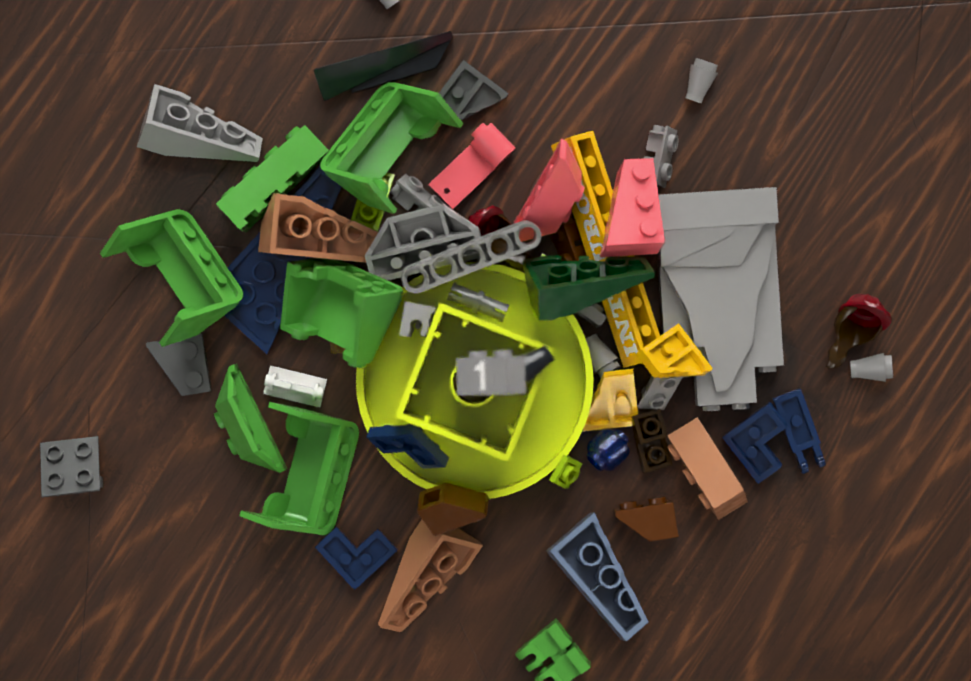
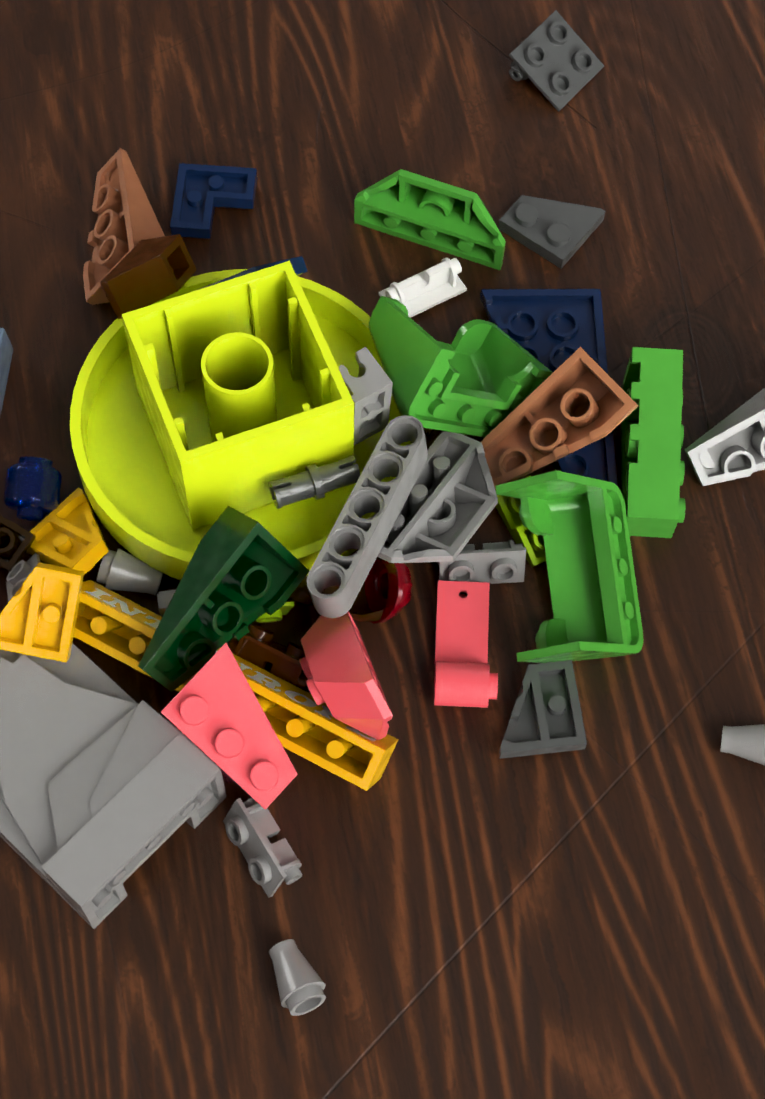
camera: 135 degrees right, 25 degrees down
(188, 264) = (670, 315): bright green windscreen -> none
(315, 476) = (308, 221): bright green windscreen -> none
(382, 66) = (663, 659): black wedge -> none
(491, 375) = (222, 359): light grey brick -> none
(536, 362) = (190, 414): black cone -> none
(566, 471) = (57, 415): lime slope -> none

